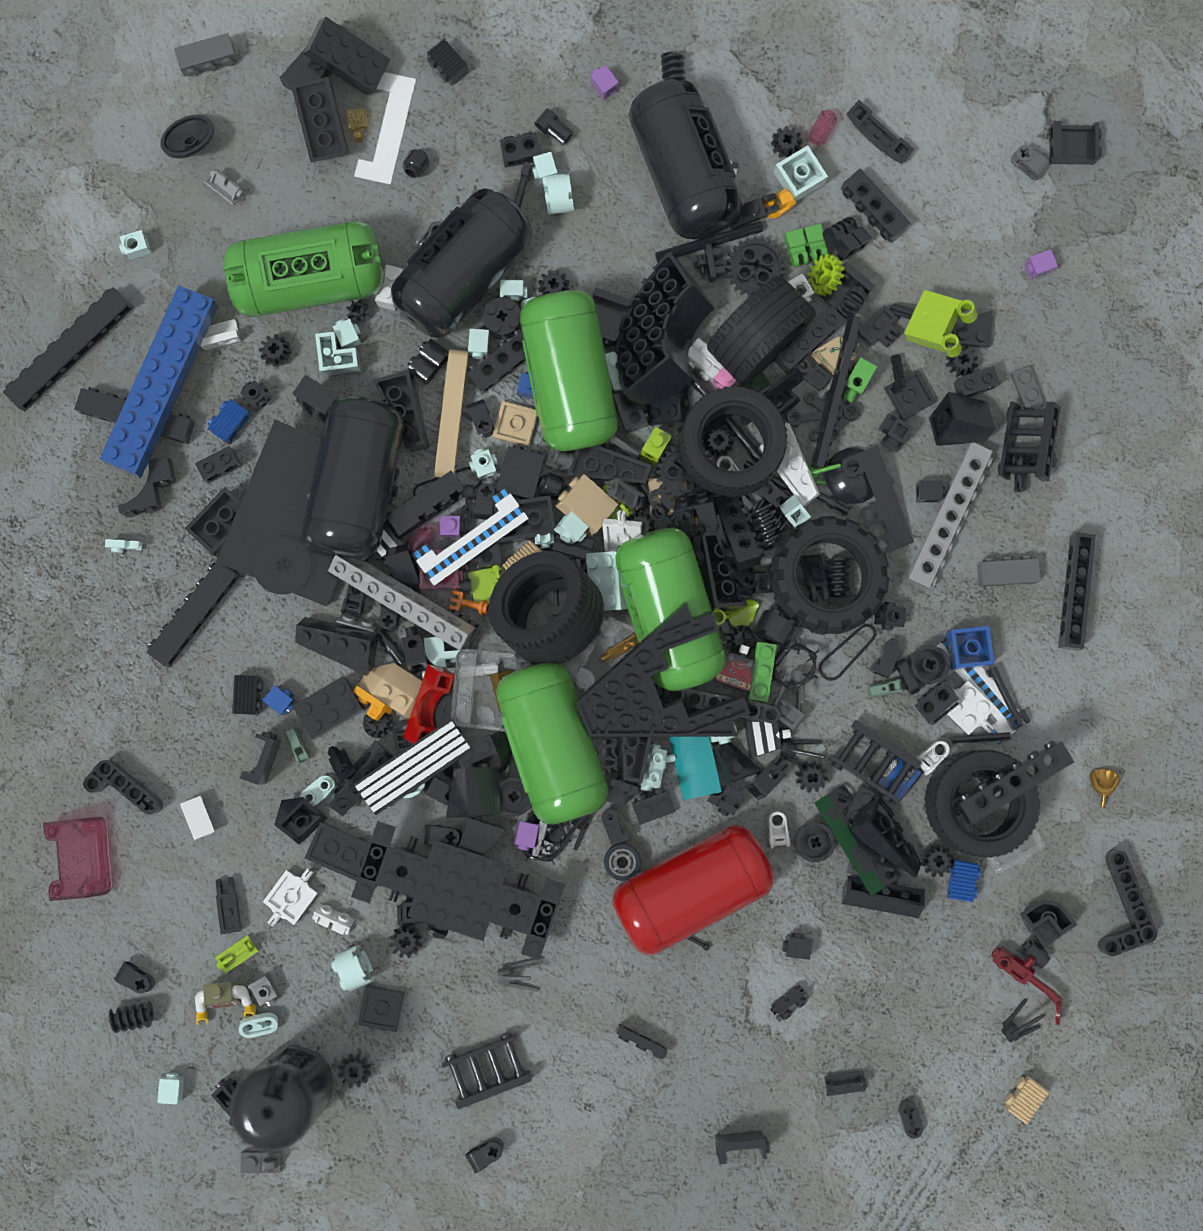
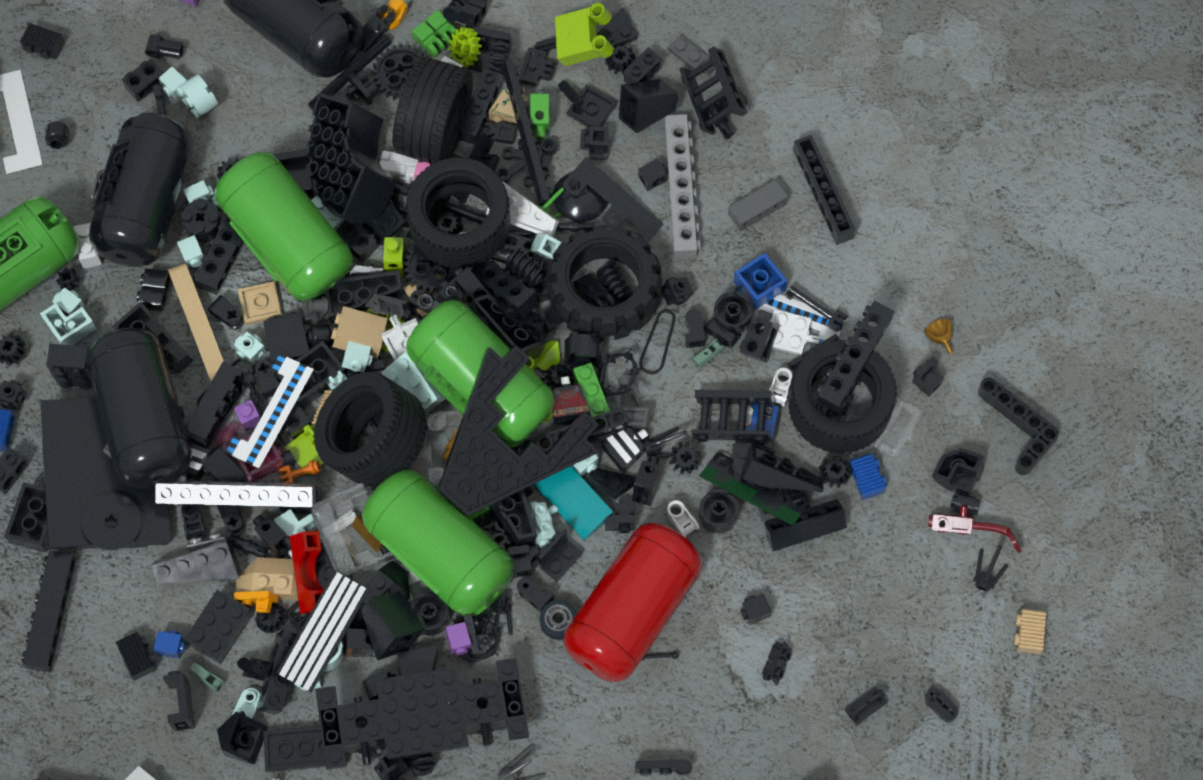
camera: 25 degrees left, 15 degrees down
(524, 387) = (253, 266): blue brick -> none
(1069, 819) = (927, 377): none -> black brick

